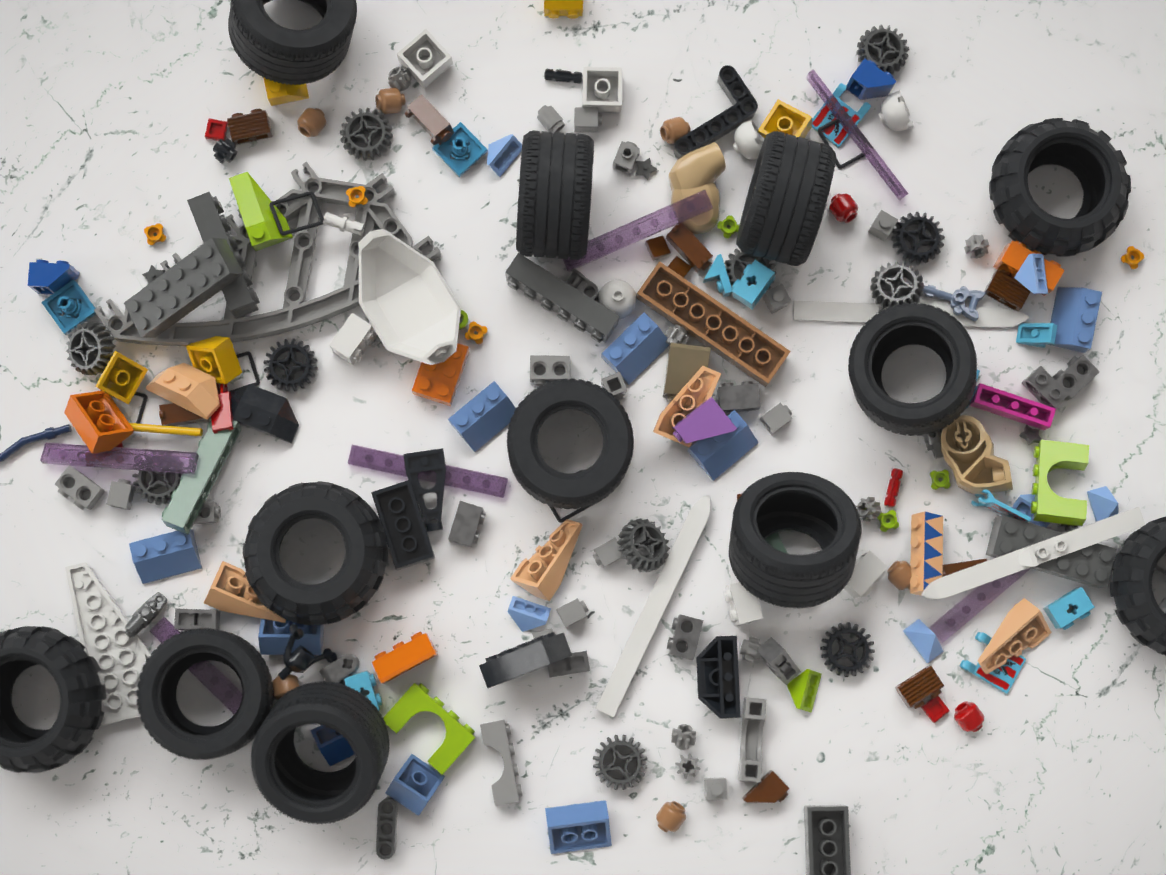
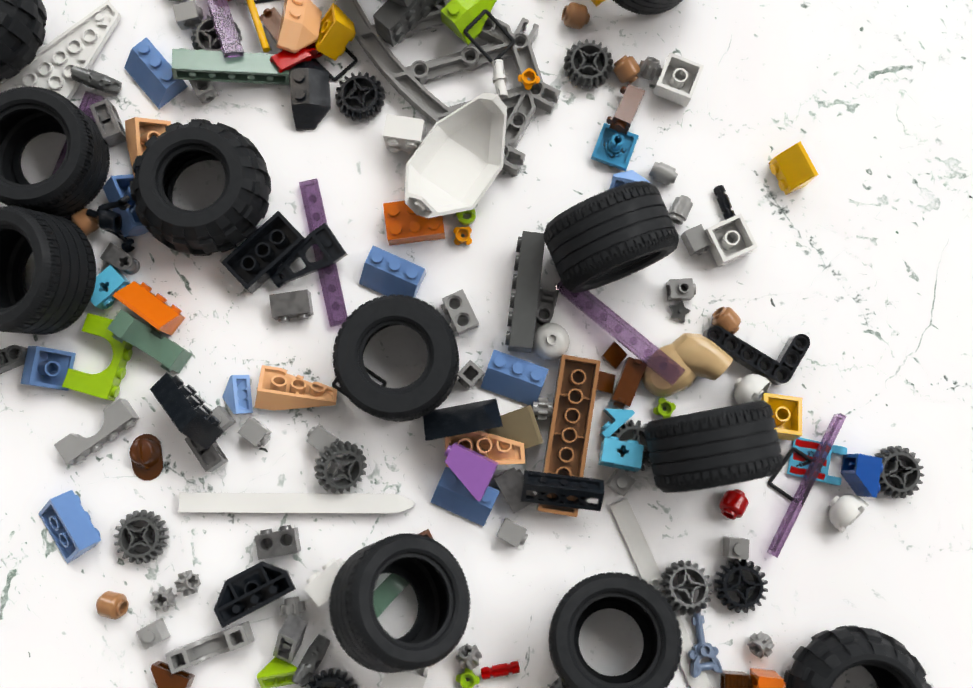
camera: 70 degrees right, 0 degrees up
(434, 674) = (149, 340): none -> sand green brick
(508, 117) = (663, 173): none -> light grey brick
(545, 727) = (146, 457): none -> reddish brown piece
(653, 412) = (462, 419): none -> black sticker
(758, 349) = (563, 487): none -> black fence
(806, 653) = (311, 661): none -> dark grey hinge

